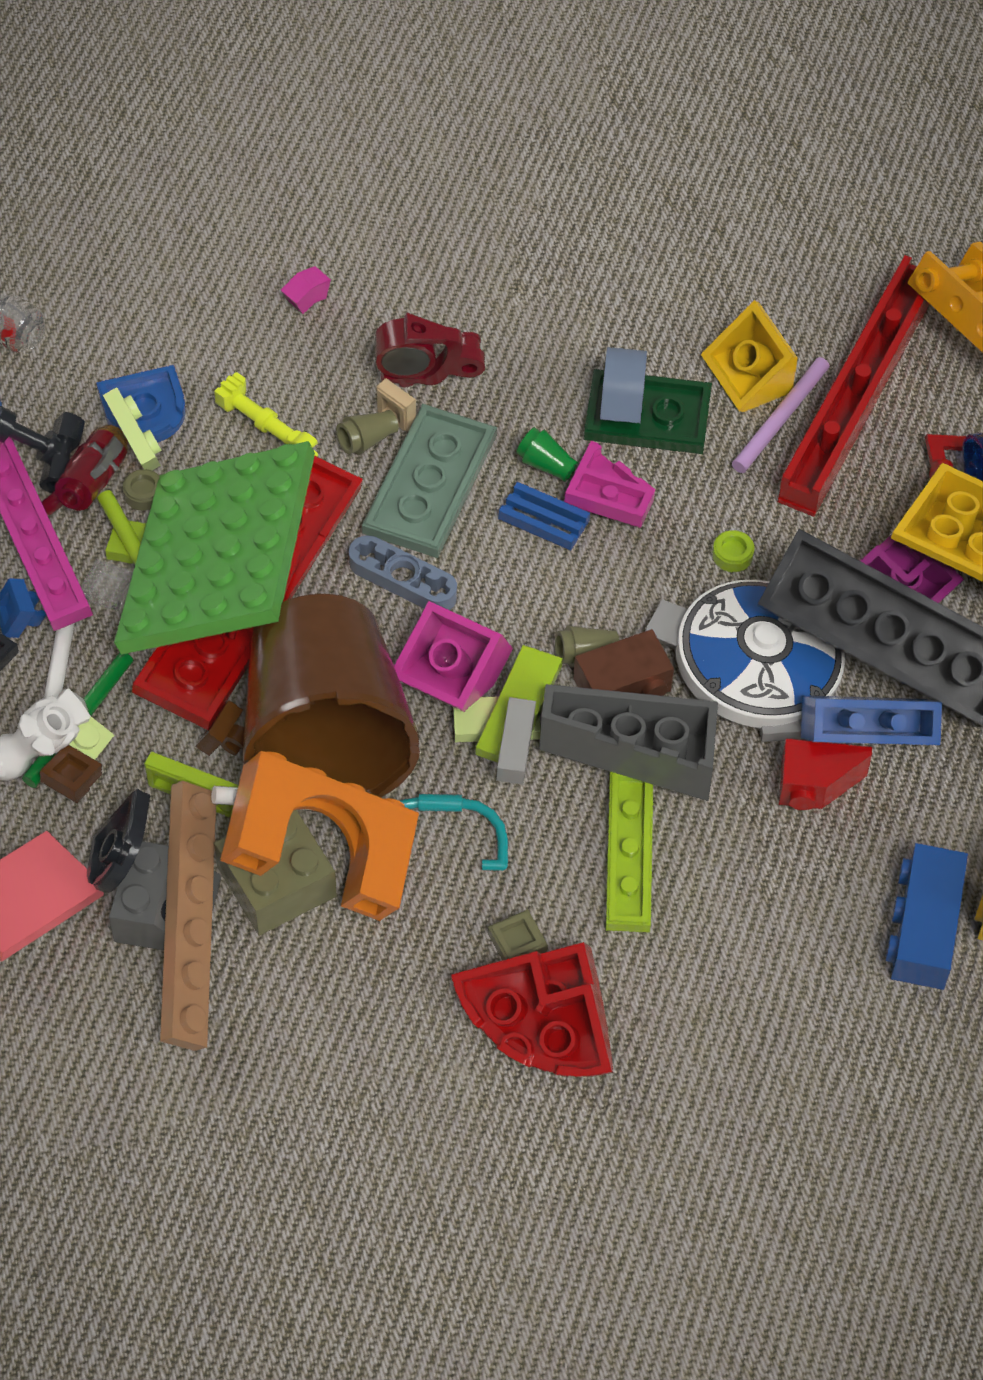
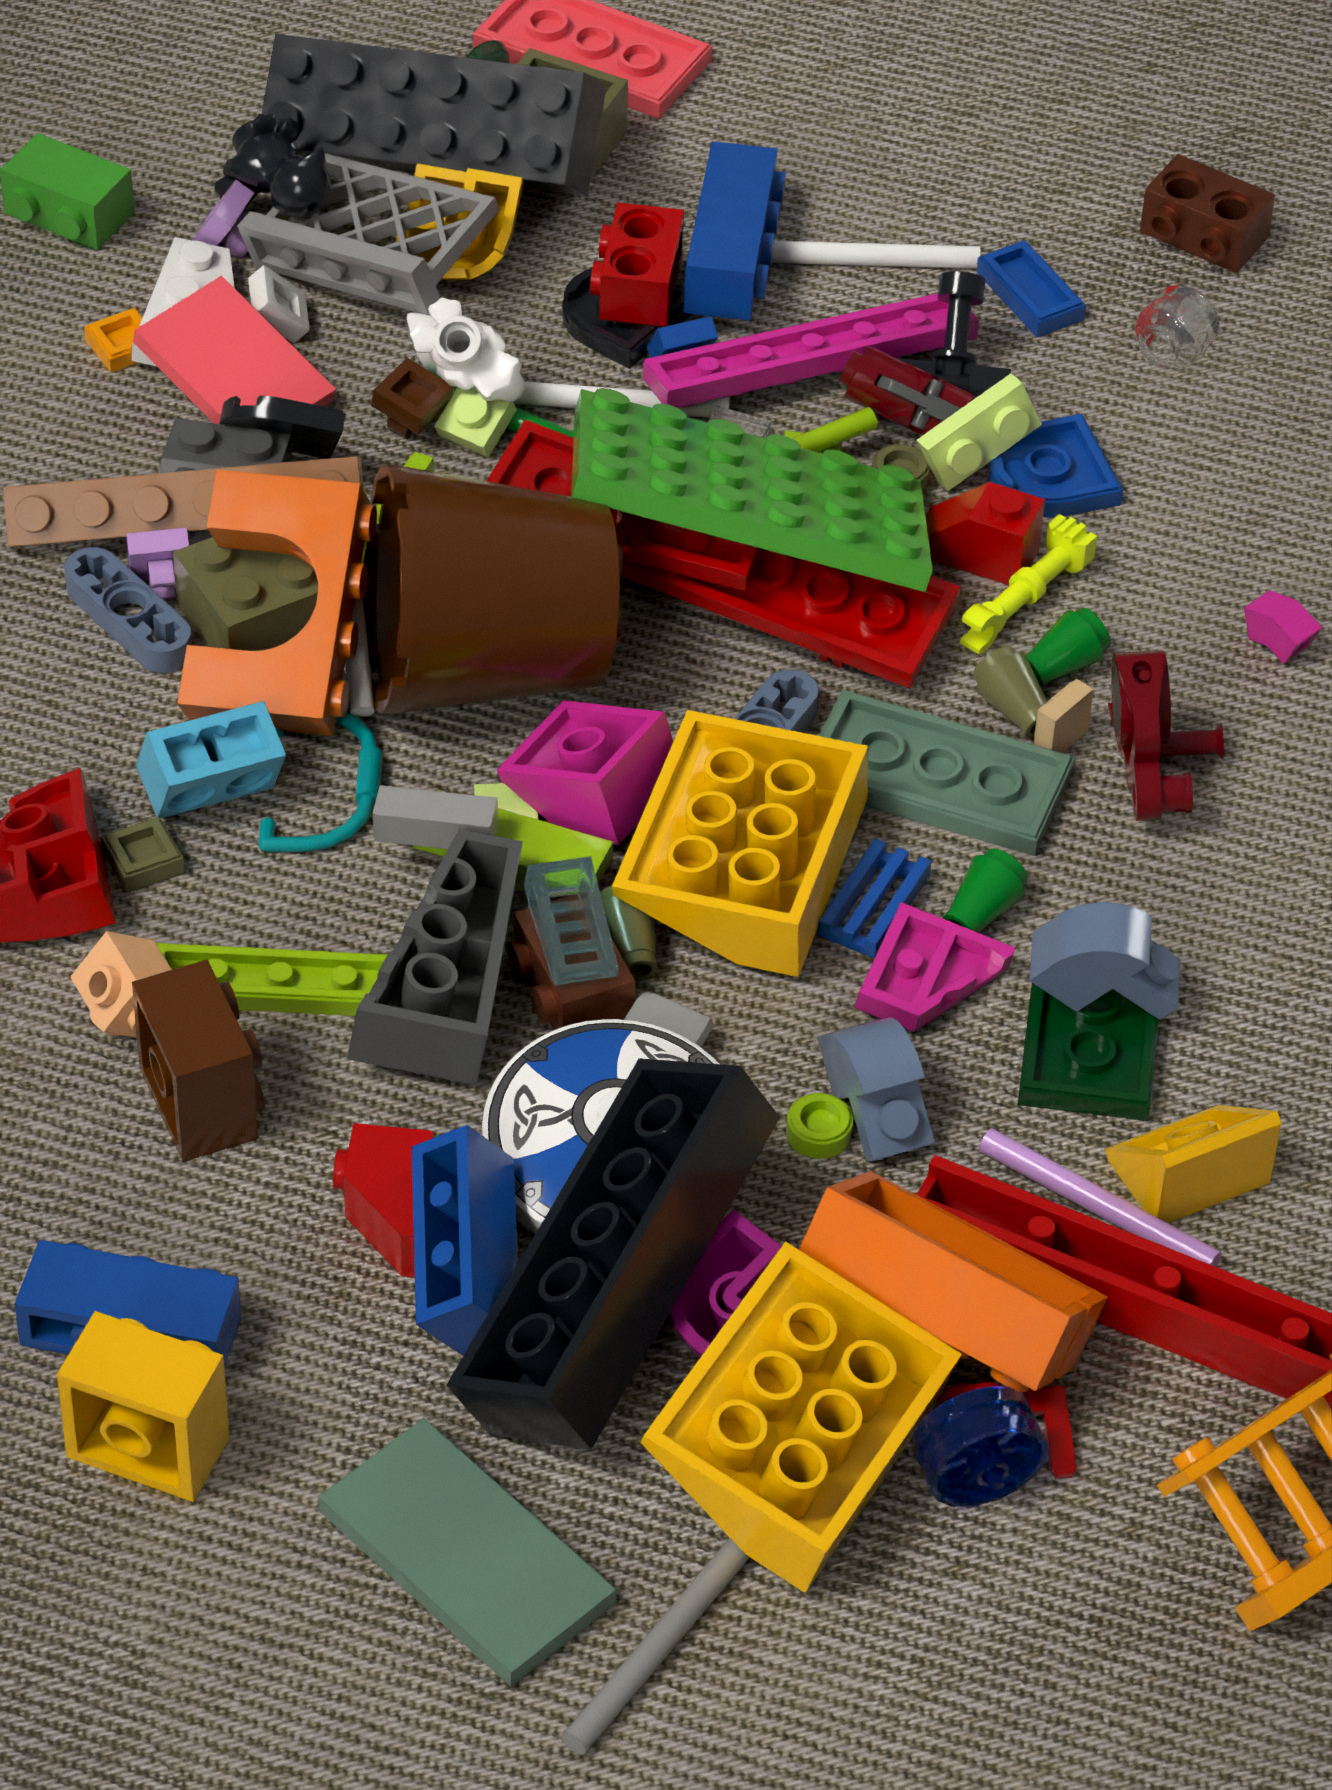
camera: 90 degrees right, 10 degrees down
(220, 430) = (986, 531): none -> red slope
(235, 937) = (152, 558): none -> lavender tile
(242, 969) = (125, 587): none -> sand blue beam
(324, 399) = (1069, 645): none -> green cone
(452, 885) = (210, 759): none -> medium azure brick
(519, 564) = (746, 838): none -> yellow slope
(590, 670) = (562, 879): none -> clear light blue slope
(663, 927) = (107, 979): none -> light nougat brick
(708, 507) = (880, 1076): none -> sand blue brick
(737, 875) = (198, 1059): none -> reddish brown brick
(884, 468) = (954, 1280): none -> orange piece

